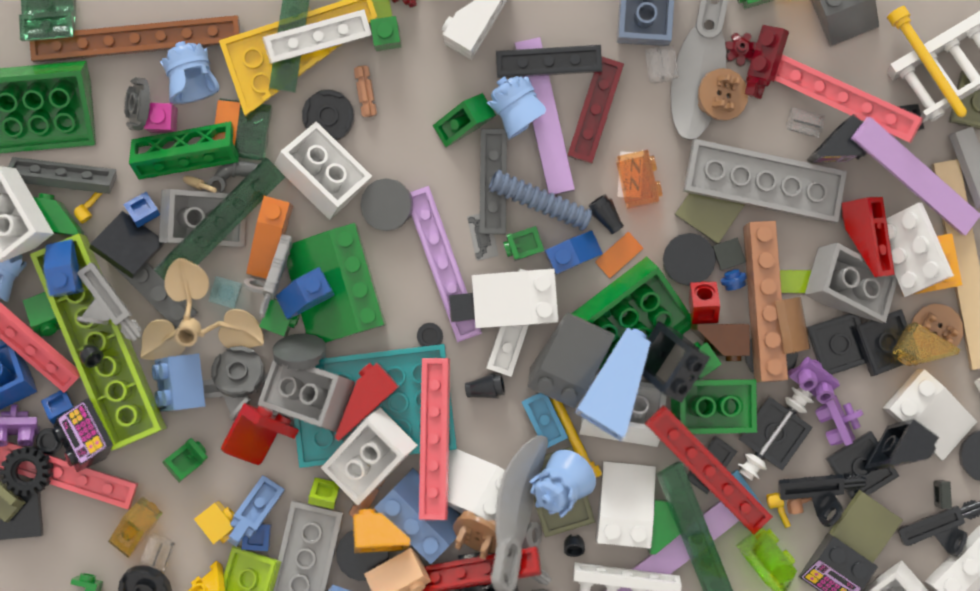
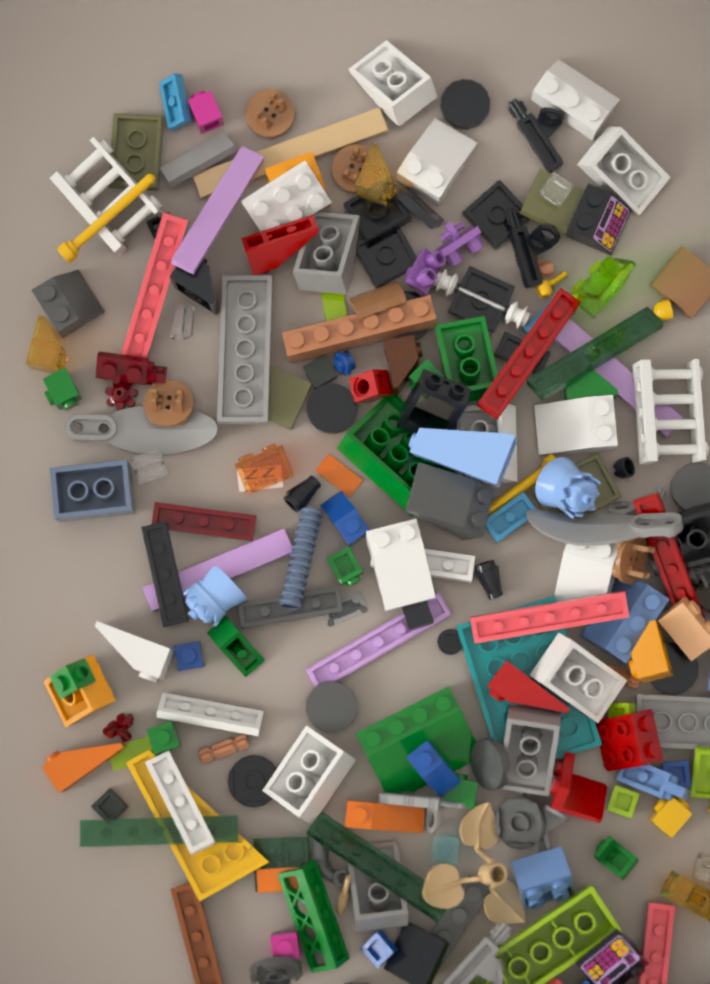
camera: 100 degrees left, 5 degrees down
(91, 355) = (533, 968): black hinge -> none
(189, 73) = (236, 925): light blue hat -> none
(239, 477) = (622, 801): none -> lime plate
(297, 496) = (629, 740): none -> red bracket
(401, 83) = (210, 714): none -> white plate
(462, 72) = (189, 656): none -> blue plate
(878, 532) = (556, 189): none -> clear tile
(883, 387) = (419, 208): none -> black tile
(901, 445) = (472, 181): black slope -> none
(942, 494) = (508, 137): pearl dark grey tile -> none

